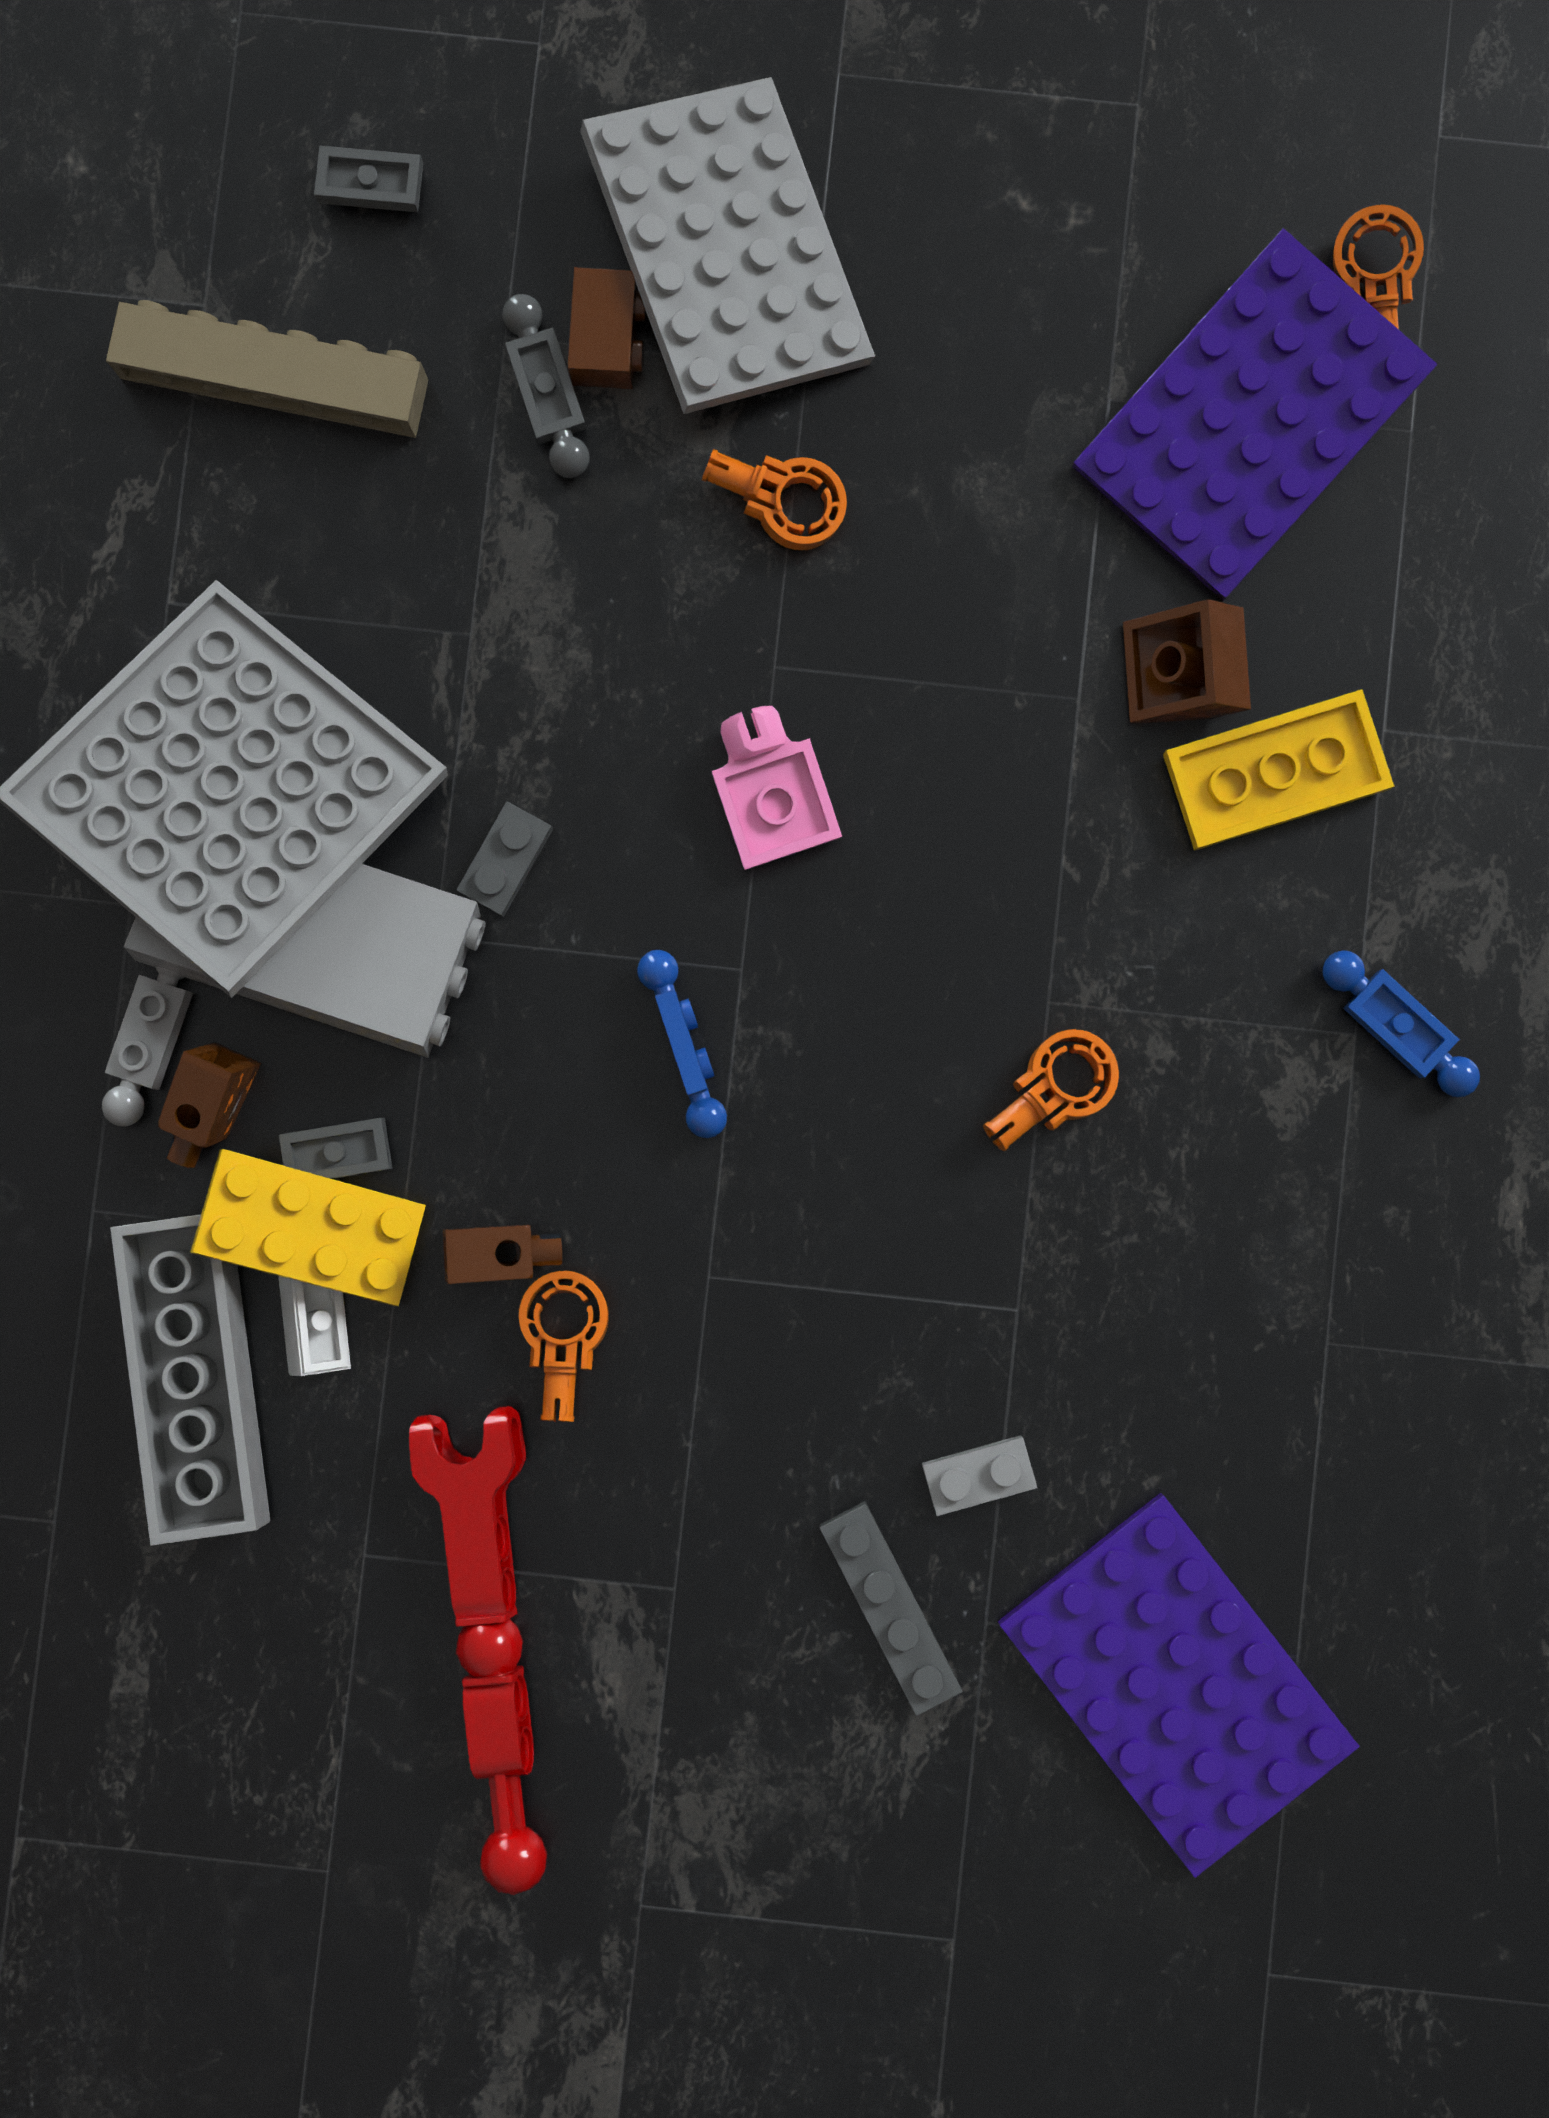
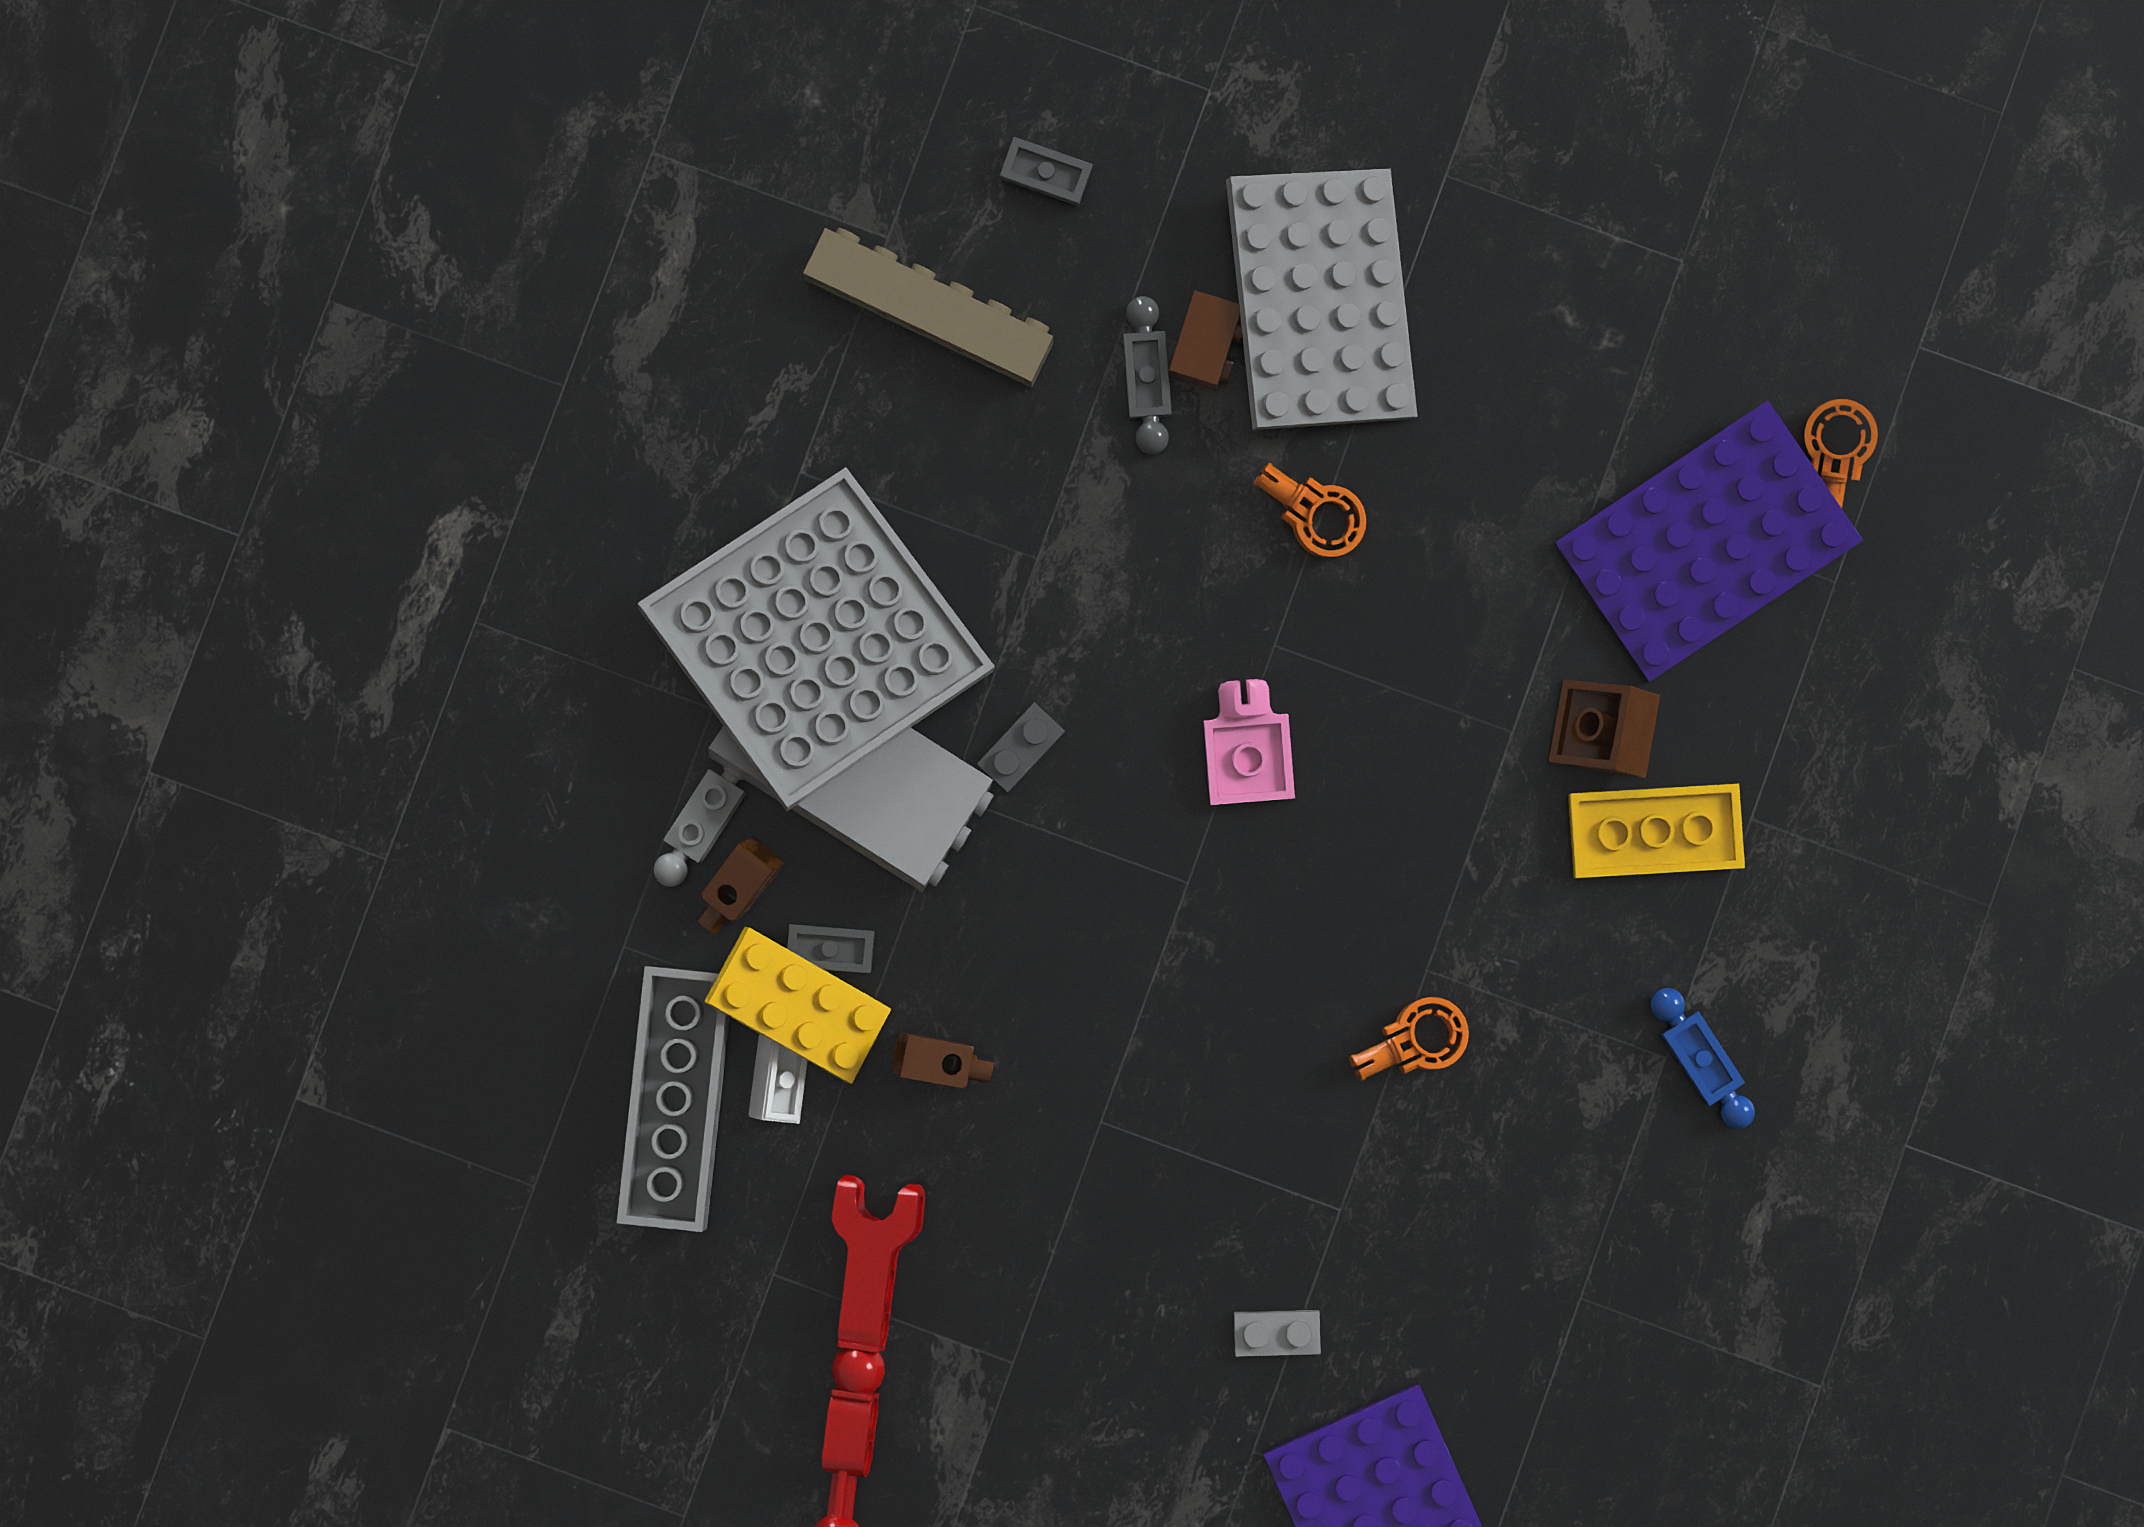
camera: 10 degrees right, 0 degrees up
(561, 1376) = (966, 1170): orange pin -> none
(705, 1115) = (1130, 993): blue plate -> none
(890, 1608) = (1180, 1420): dark grey plate -> none

